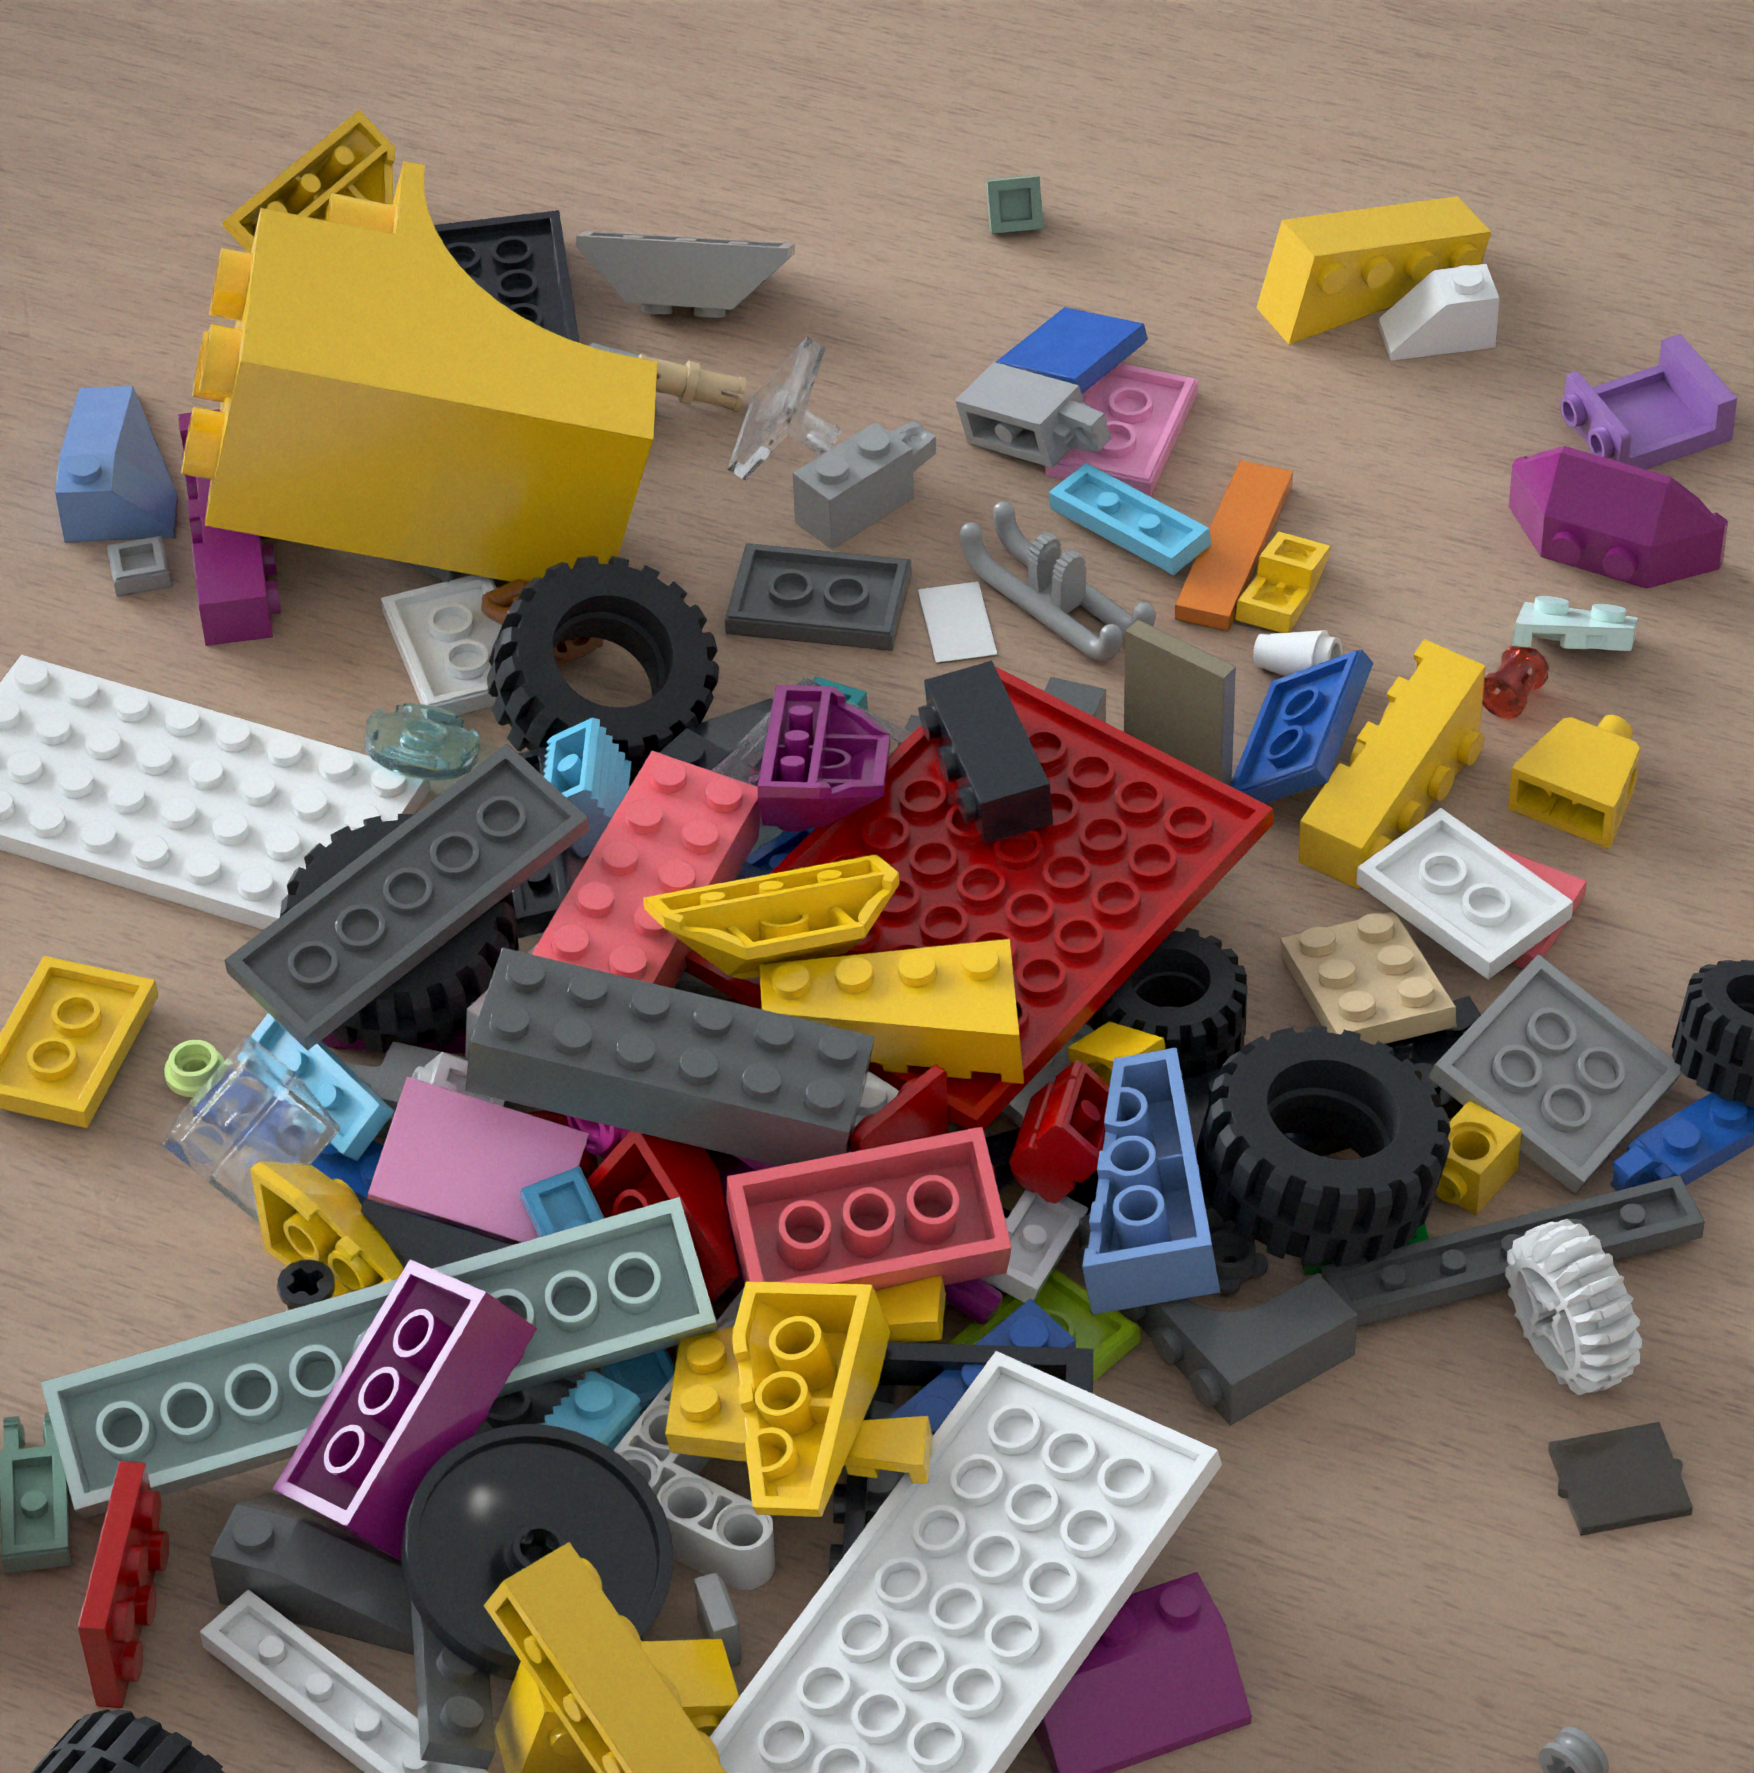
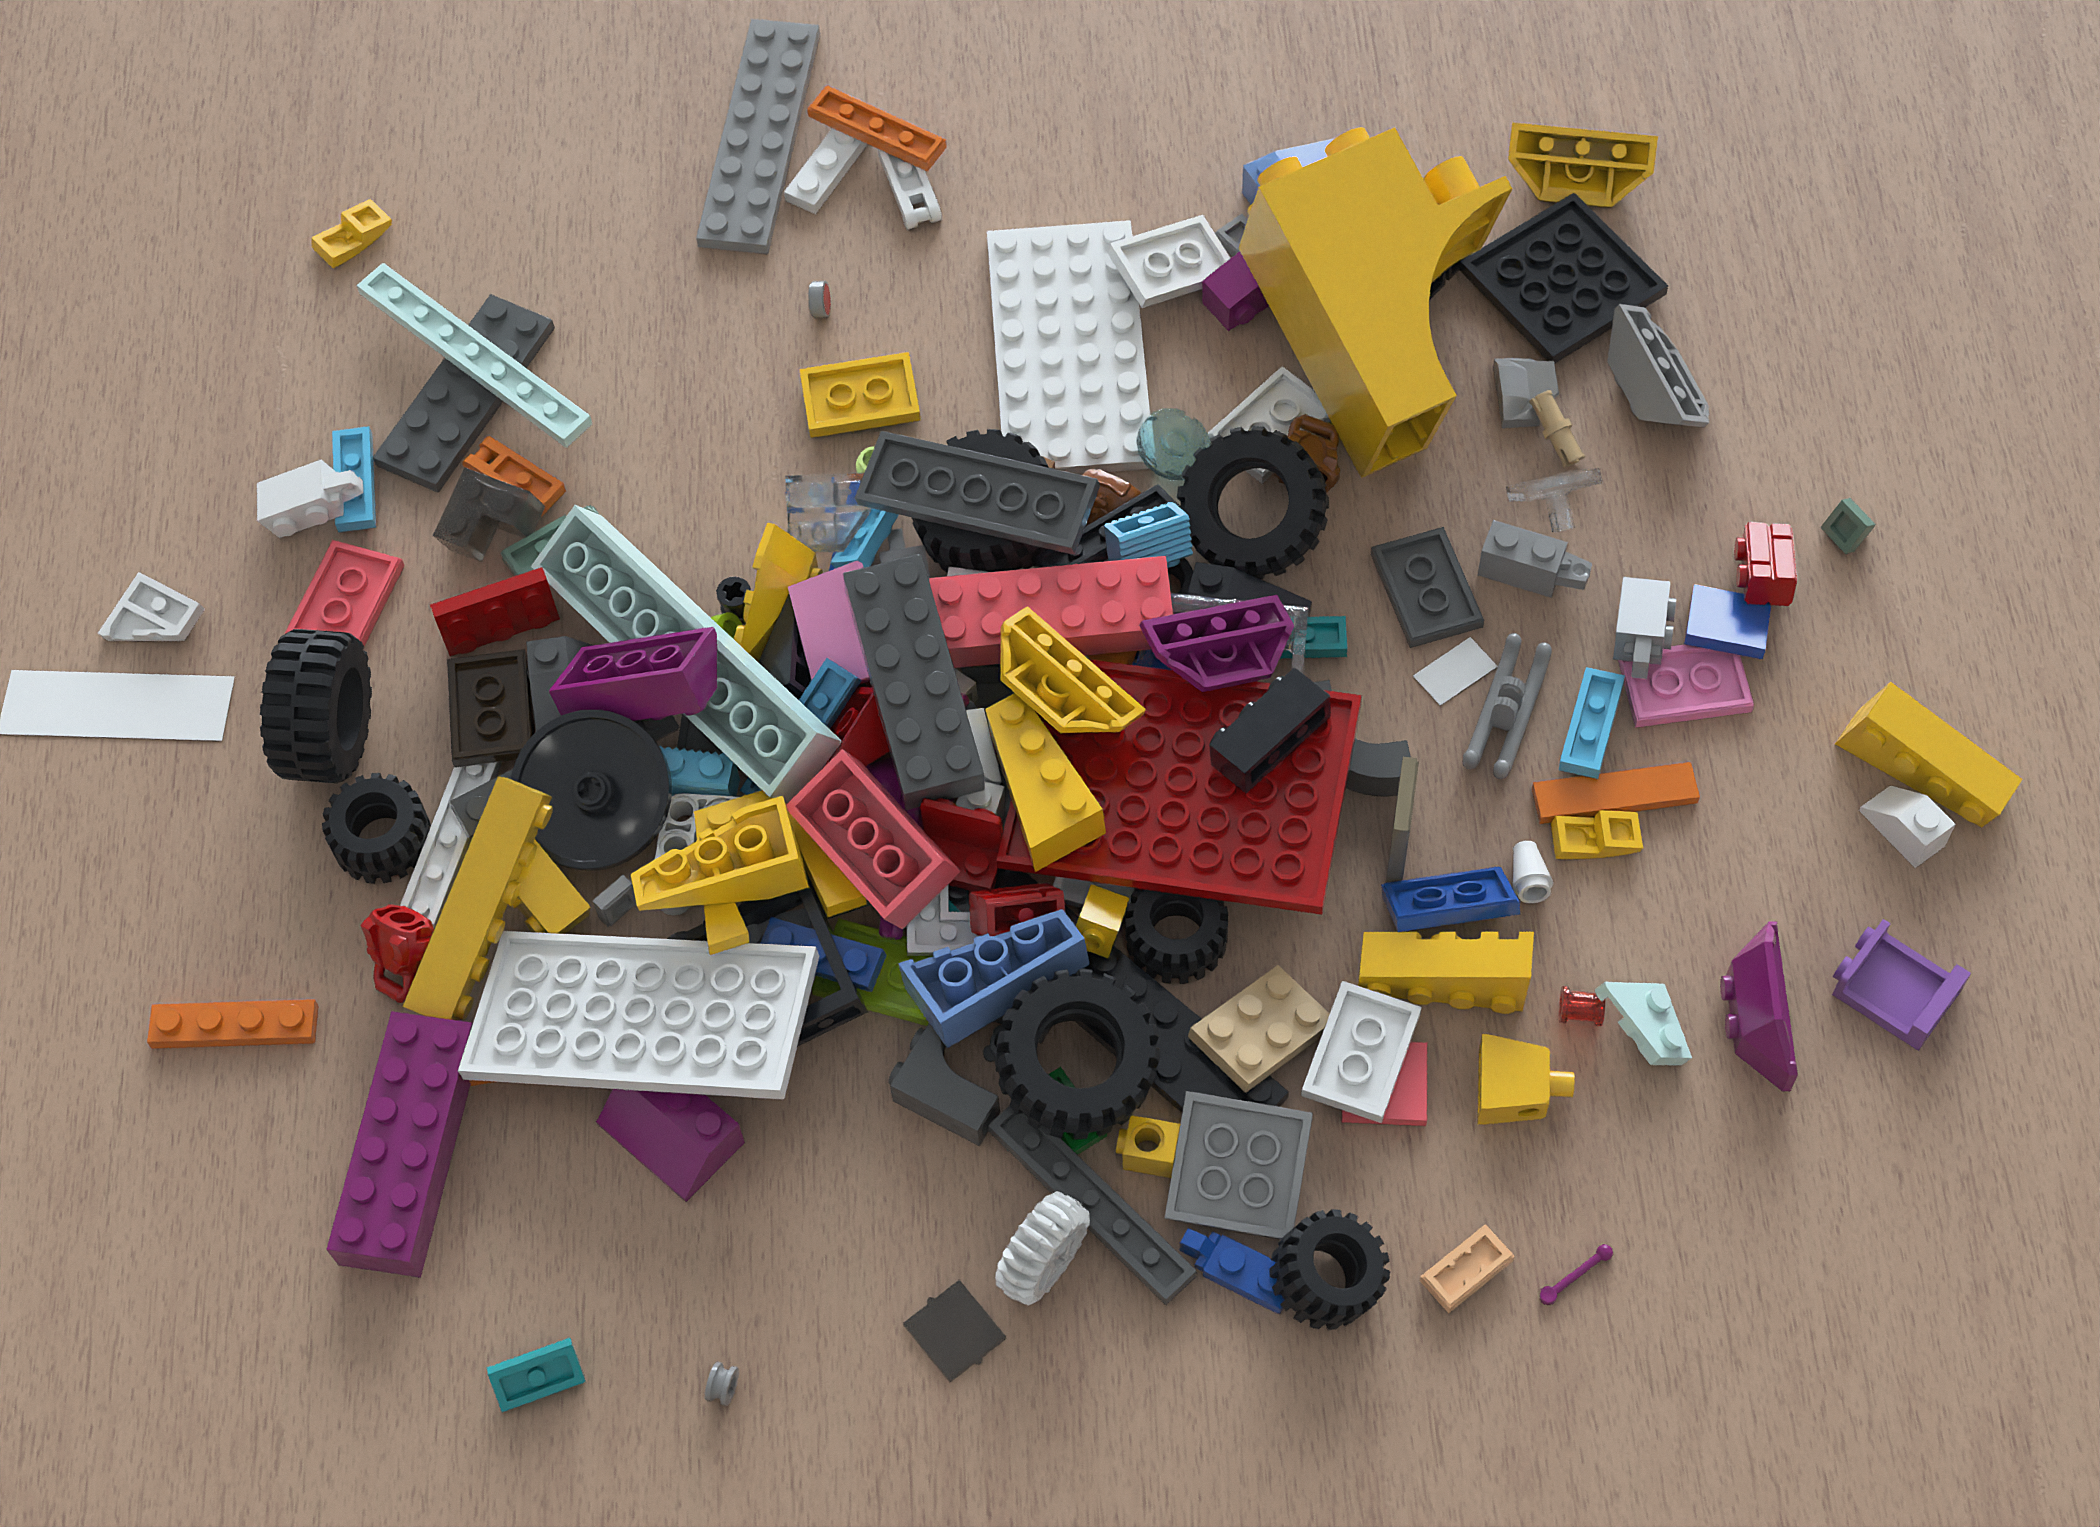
camera: 65 degrees right, 15 degrees up
(133, 630) = (1168, 260): none -> white plate
(280, 1657) = (488, 707): none -> dark brown tile
(1023, 281) = (1767, 564): none -> brick

